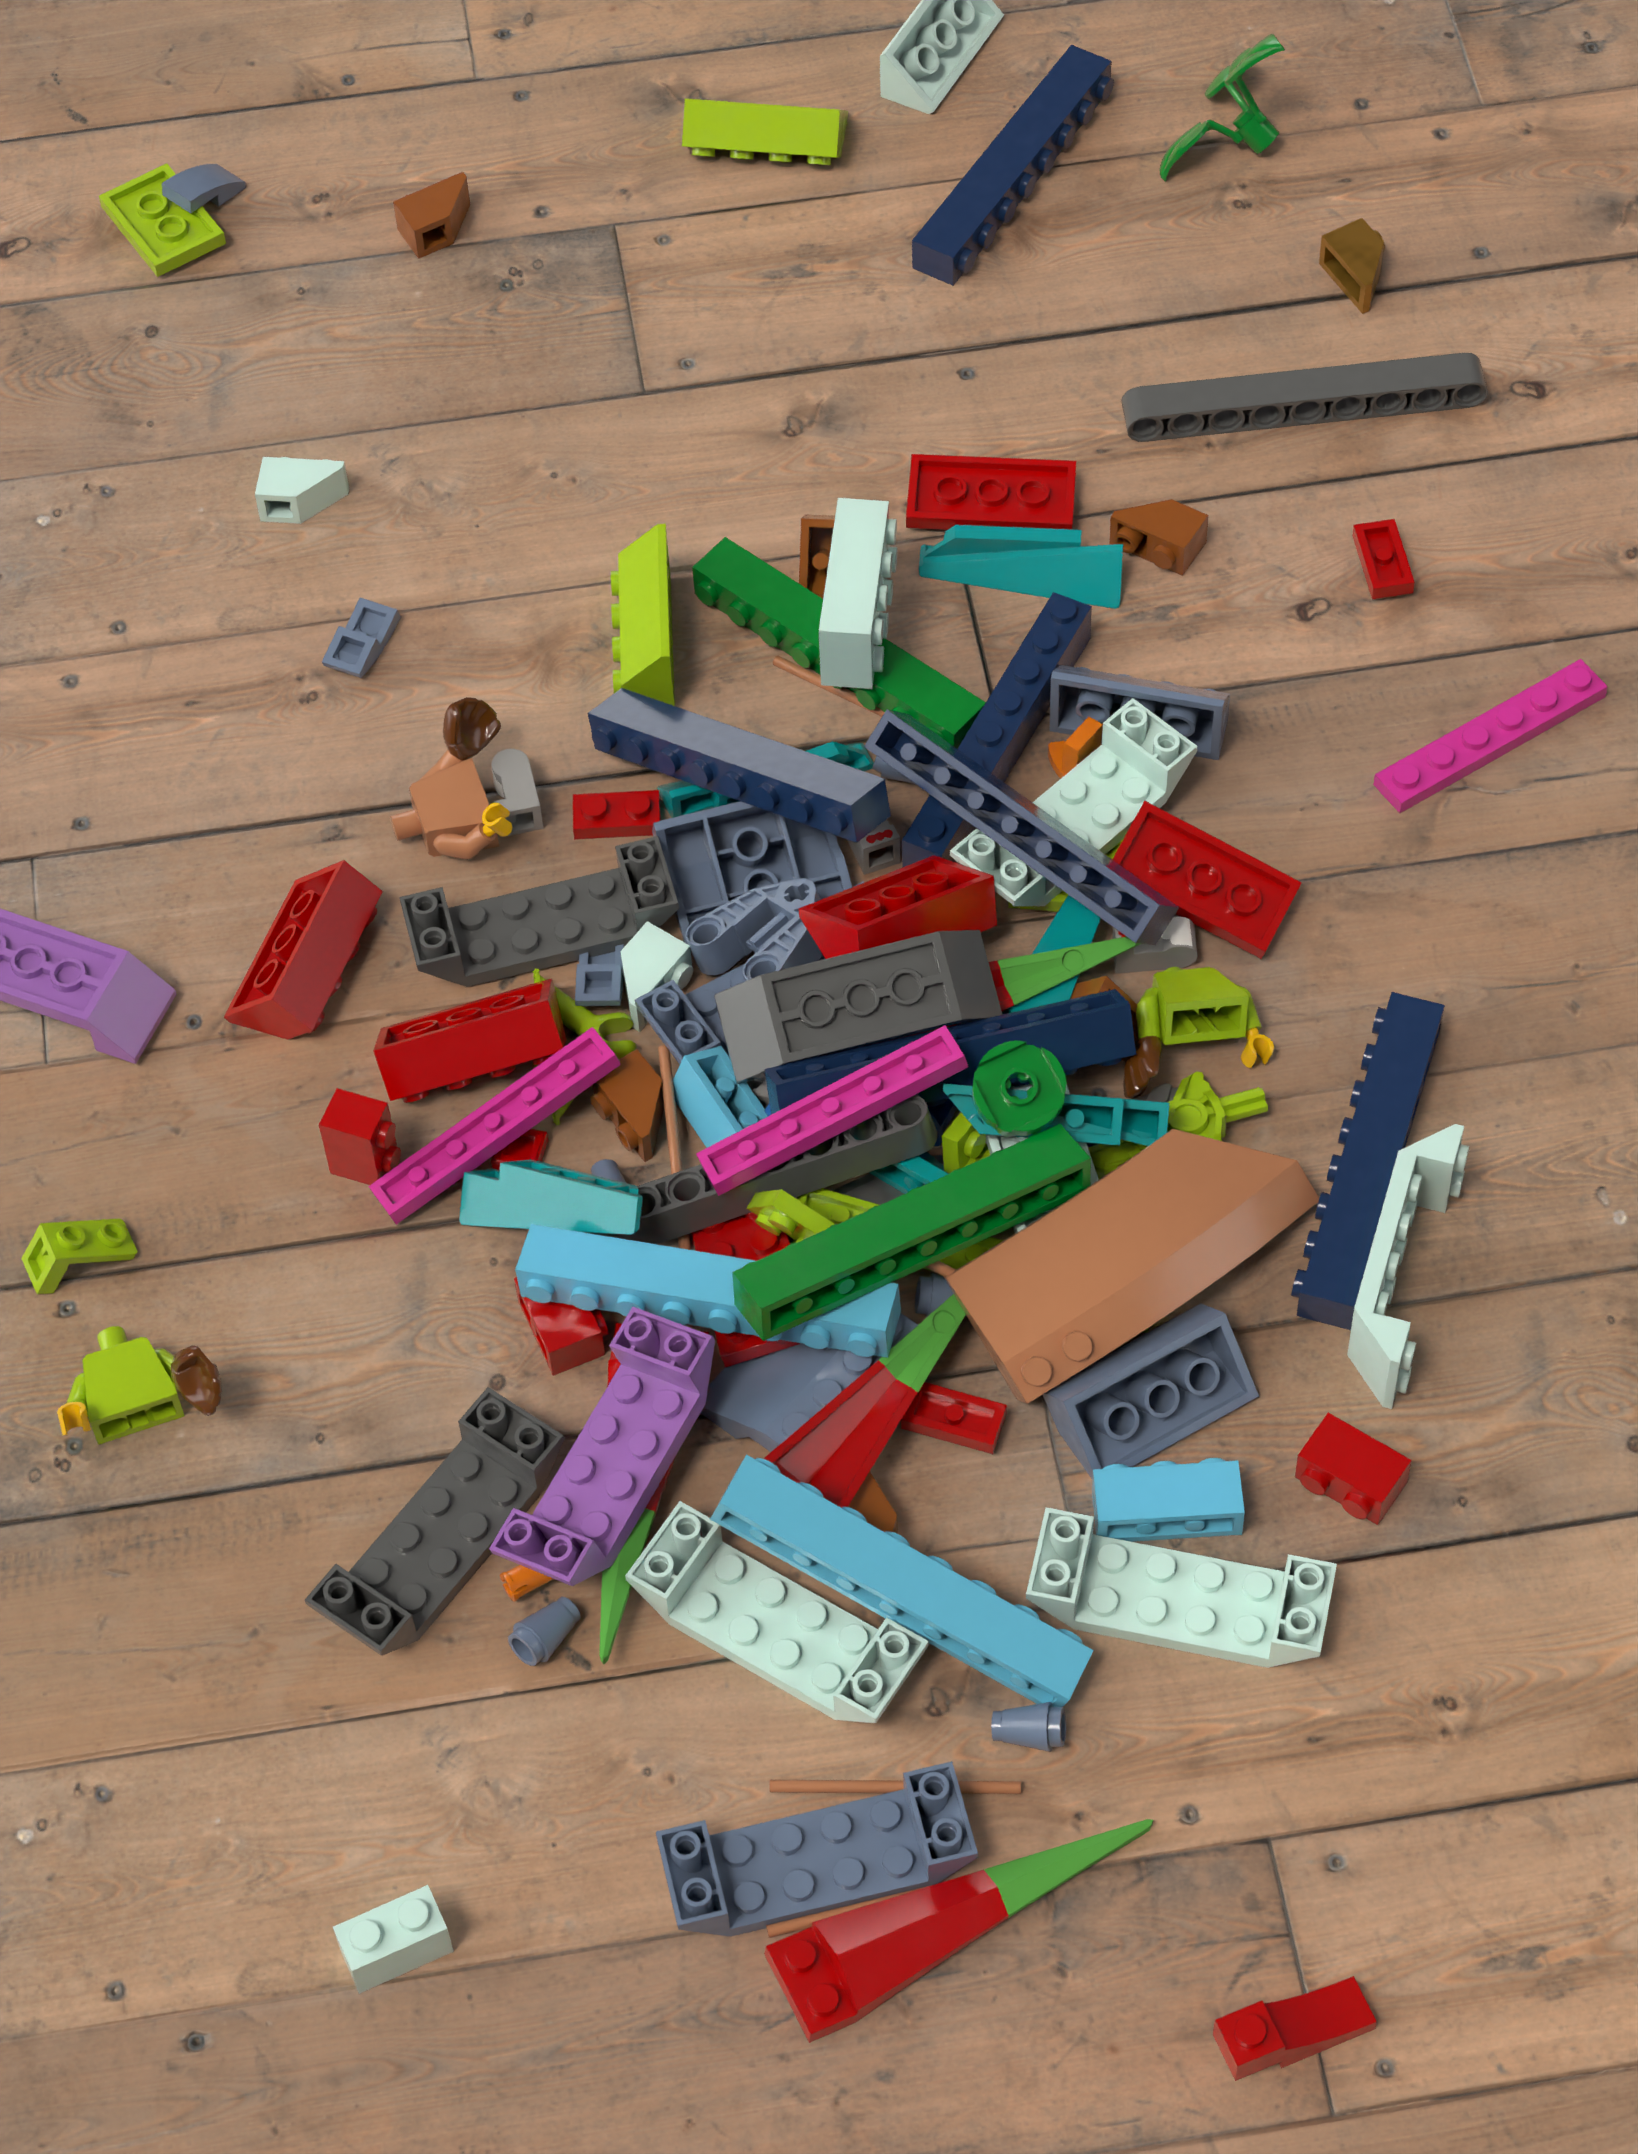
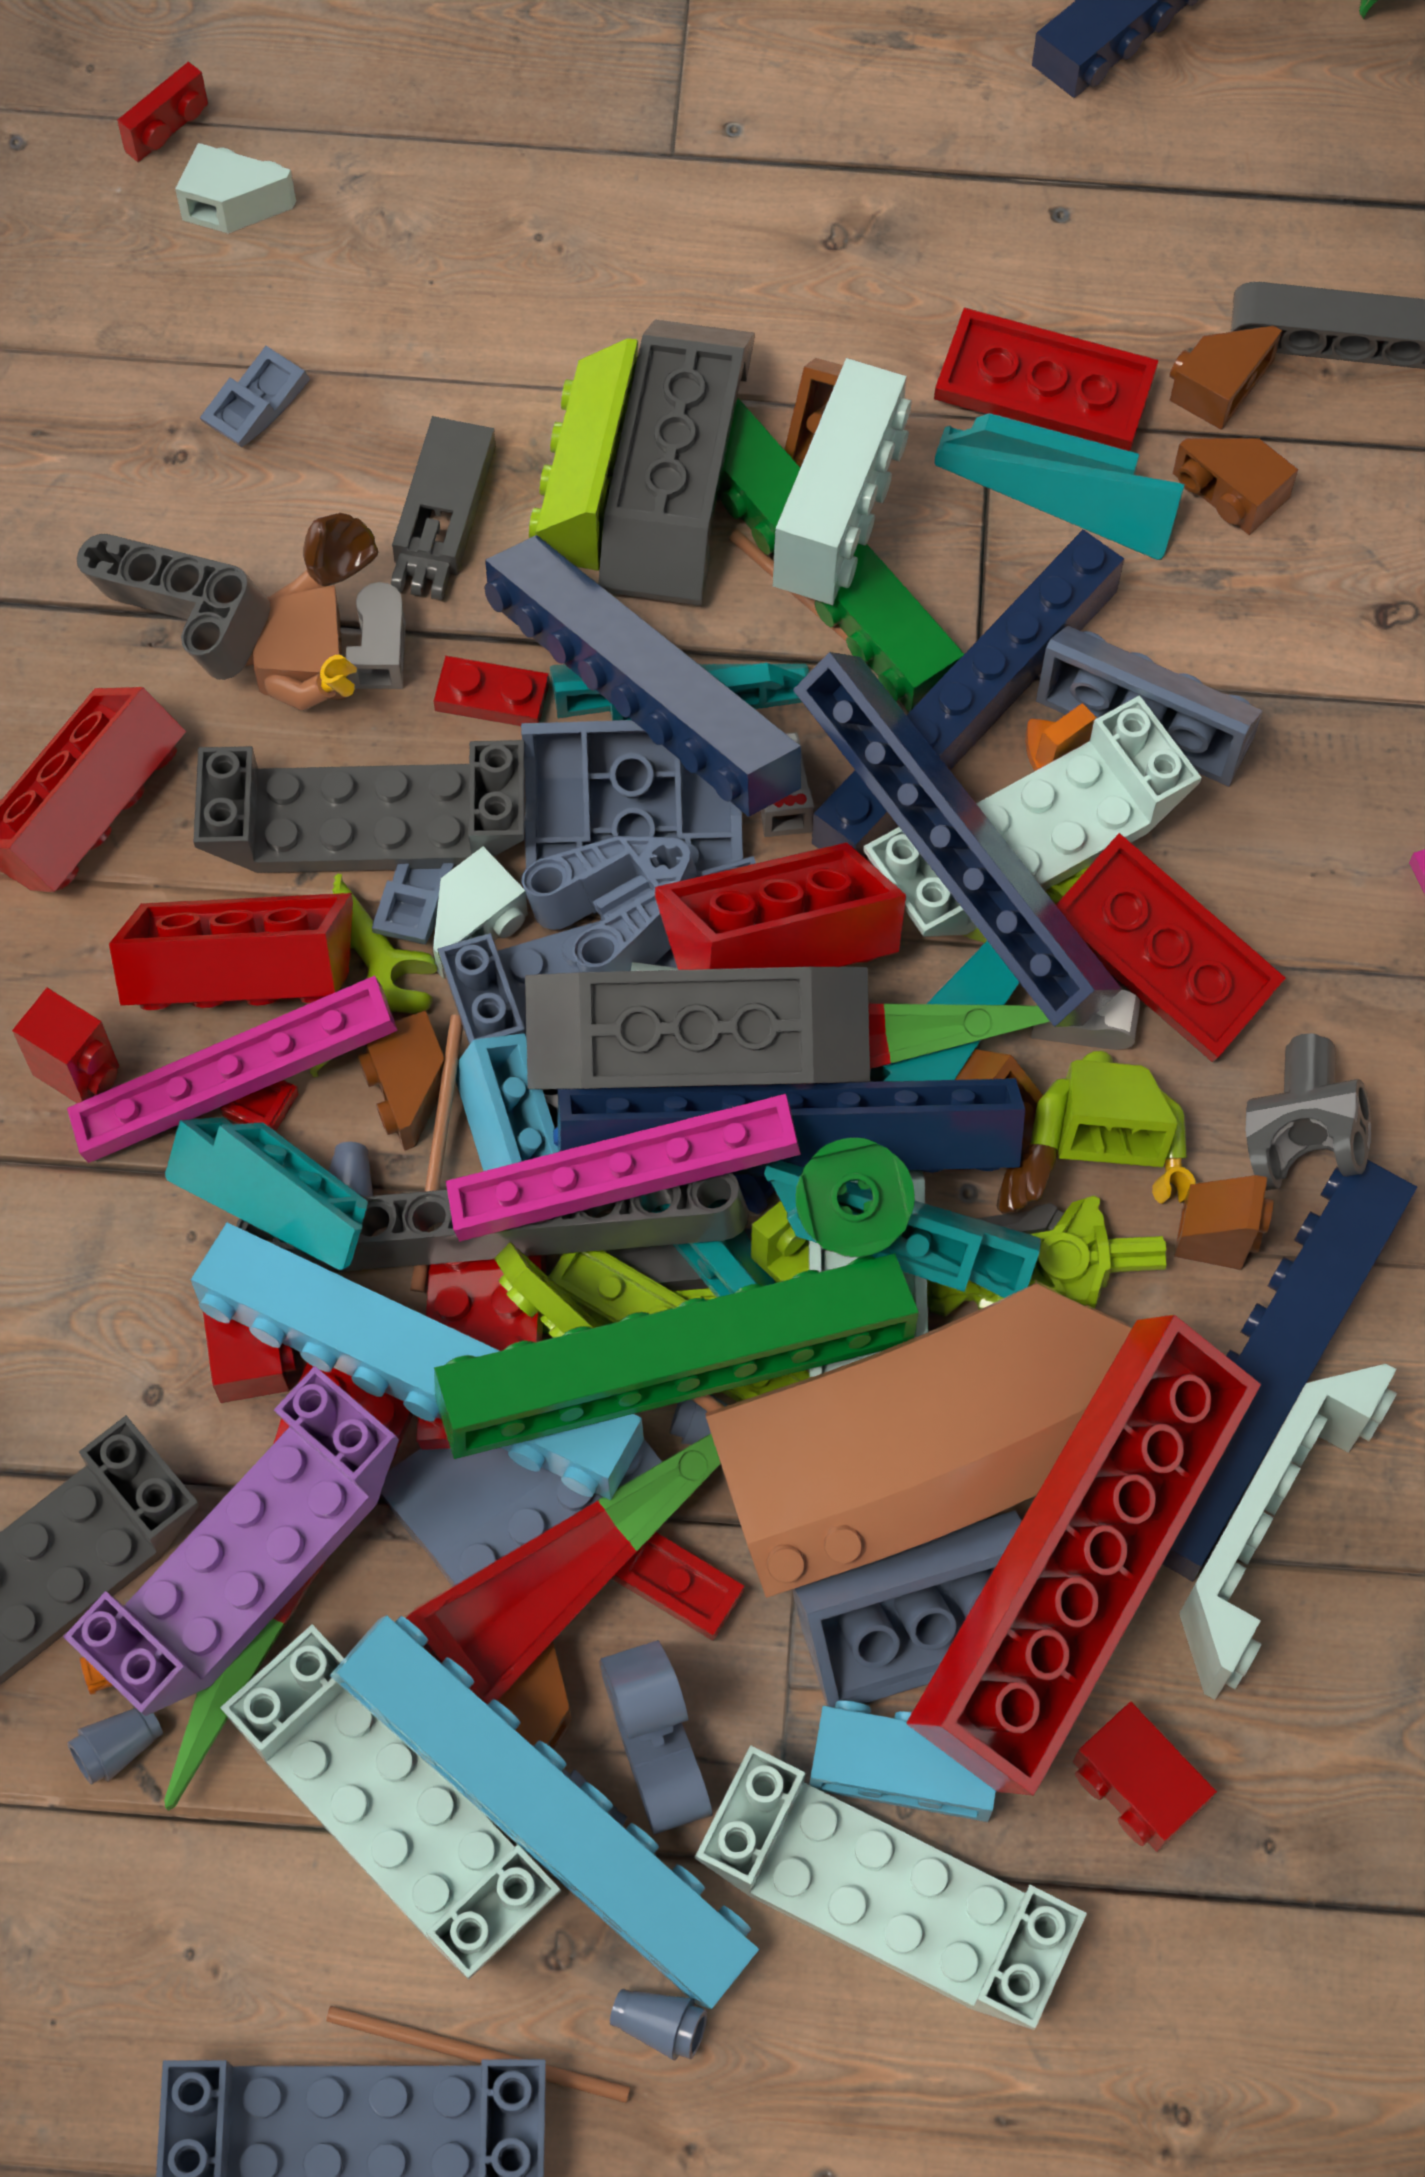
camera: 10 degrees right, 10 degrees up
(224, 442) = (163, 112): none -> red plate
(378, 784) = (216, 598): none -> dark grey beam
(536, 664) = (448, 480): none -> dark grey hinge
(715, 613) = (672, 461): none -> dark grey slope
(946, 1498) = (650, 1721): none -> sand blue connector
(1128, 459) = (1222, 372): none -> dark orange slope
(1264, 1307) = (1084, 1556): none -> red brick
(1303, 1063) = (1224, 1221): none -> dark orange slope
(1347, 973) = (1309, 1115): none -> dark grey connector

